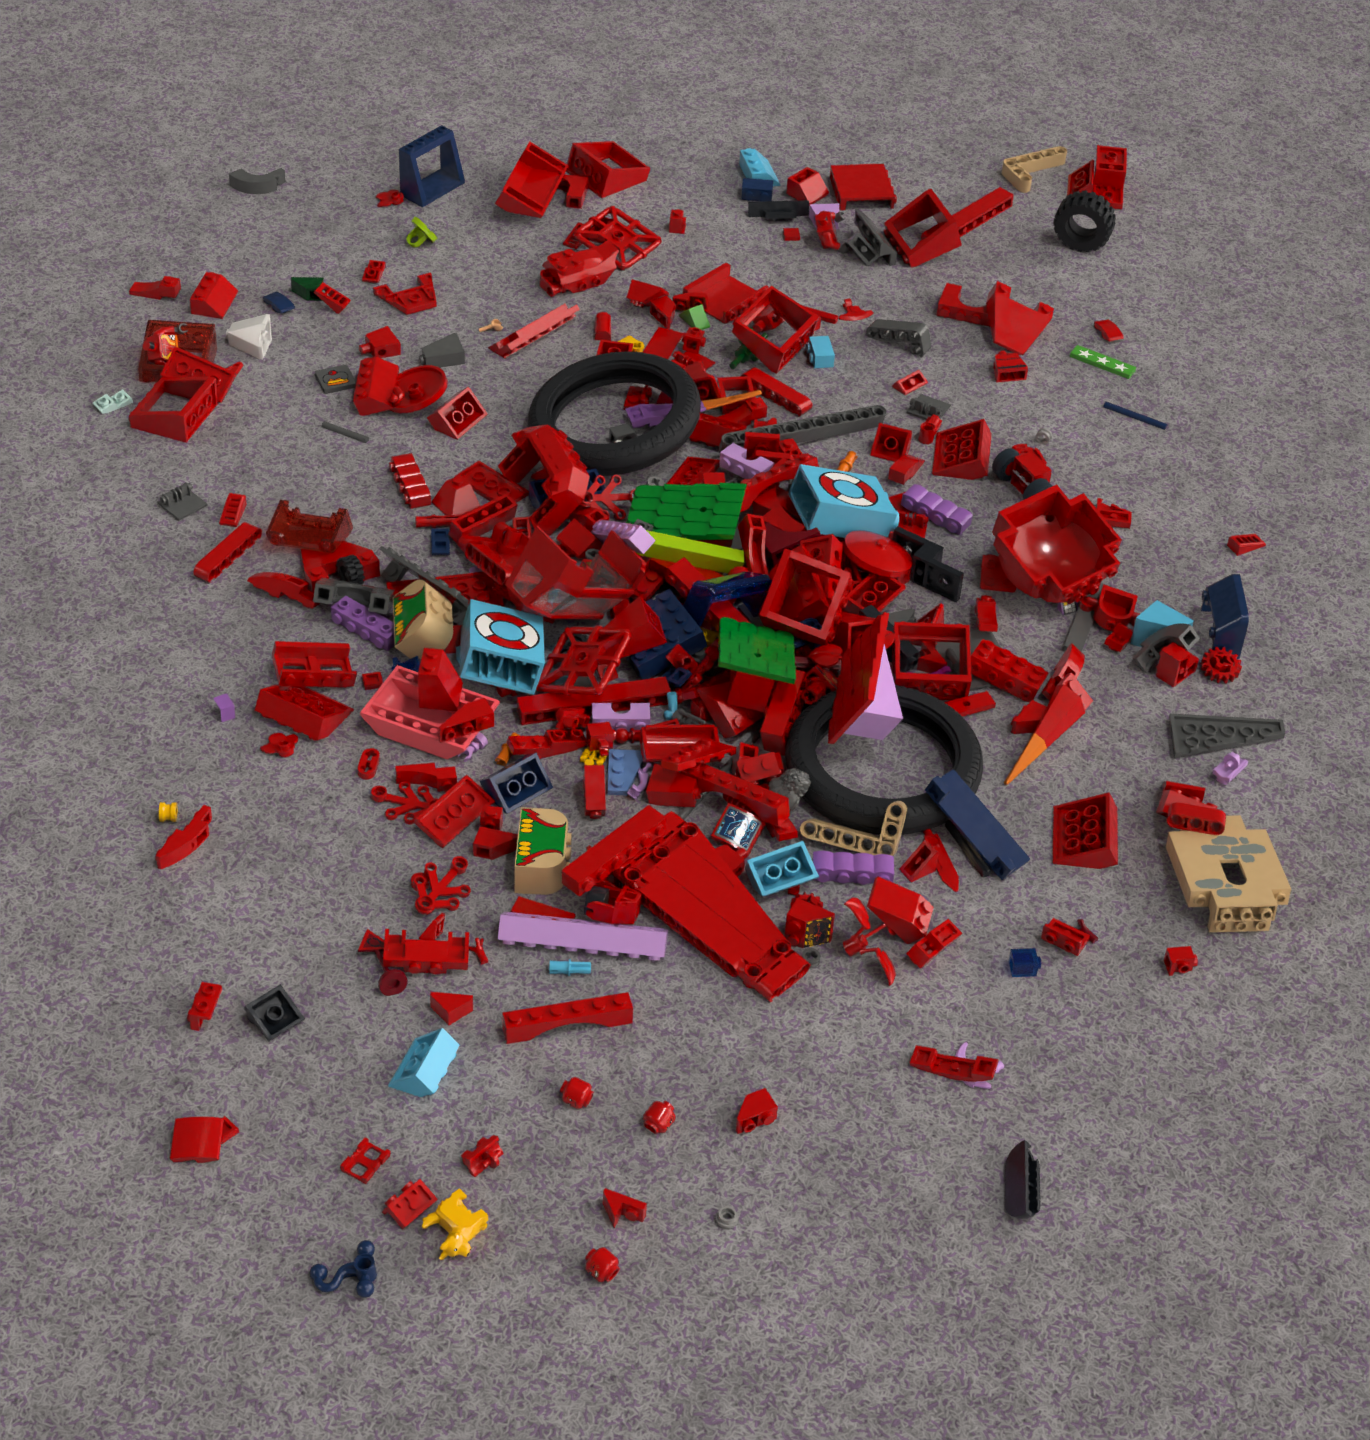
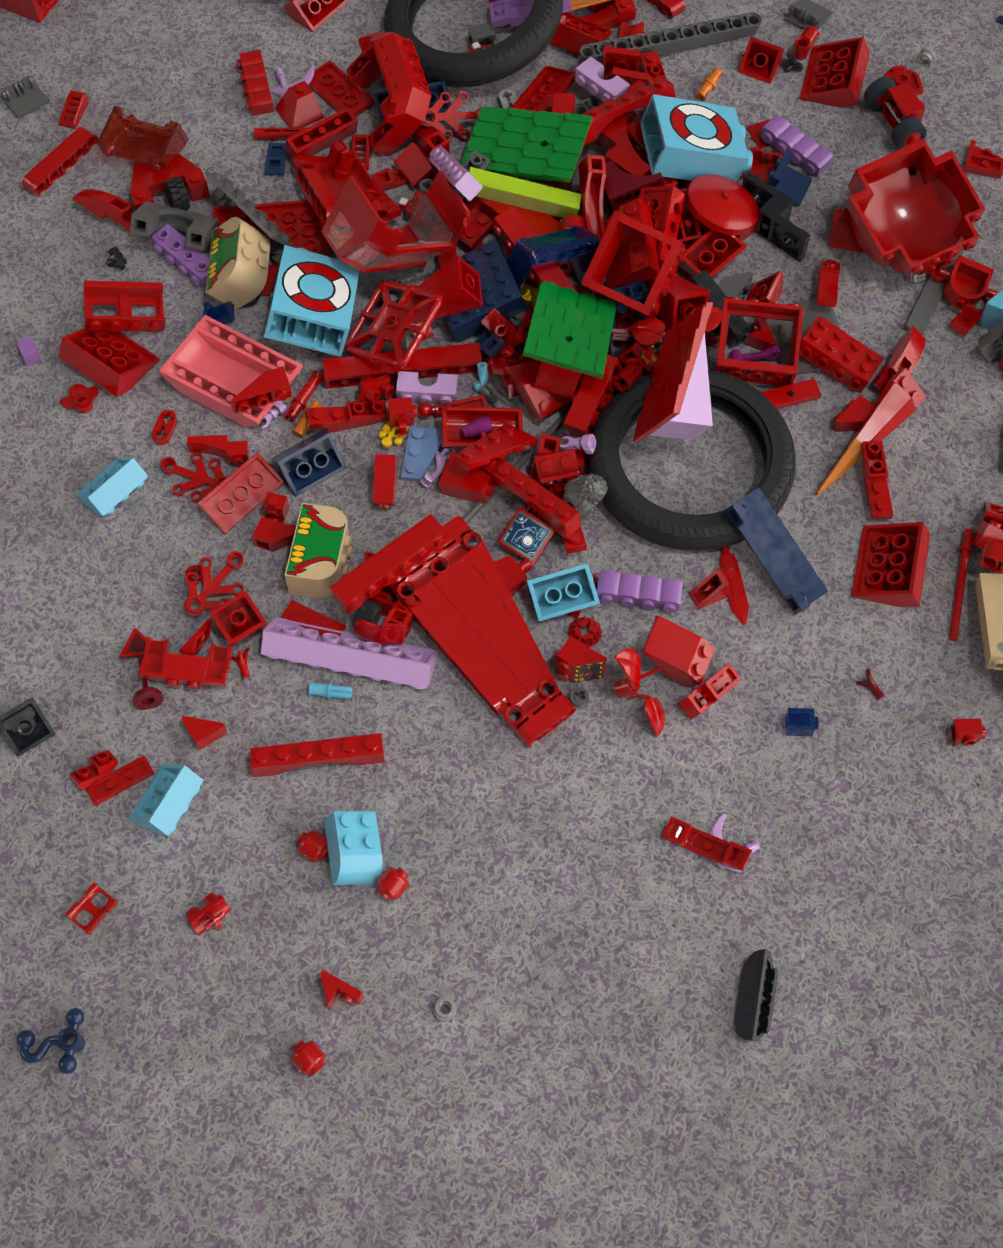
camera: 10 degrees right, 20 degrees up
(297, 629) = (116, 258): none -> black plant
(326, 812) = (112, 486): none -> medium azure slope
(346, 432) = (216, 26): dark grey bar -> none
(350, 1045) = (99, 767): none -> red slope
(372, 680) = (183, 325): red tile -> none
(374, 1054) = (120, 780): none -> red tile
(410, 1204) = (127, 965): red bracket -> none
(437, 484) = (283, 87): none -> lavender piece
(438, 682) = (238, 344): red slope -> none
(458, 1222) = (172, 994): yellow animal -> none
(469, 909) = (237, 618): none -> red slope
(498, 736) = (299, 402): none -> red pin
(617, 1087) = (353, 847): none -> medium azure brick
(675, 743) = (478, 426): none -> magenta cone
(756, 1110) = (492, 883): red slope -> none
(785, 745) = (585, 442): none -> lavender piece
(858, 836) = (651, 553): tan beam -> none
(904, 468) = (771, 91): red slope -> none
(921, 445) = (793, 63): none -> black plant
(935, 534) = (789, 180): none -> dark blue bracket
(974, 857) = (771, 590): black axle -> none
(1058, 768) = (875, 480): none -> red slope
(1065, 936) = (849, 692): red bracket -> none
(1152, 819) = (965, 549): none -> red bar

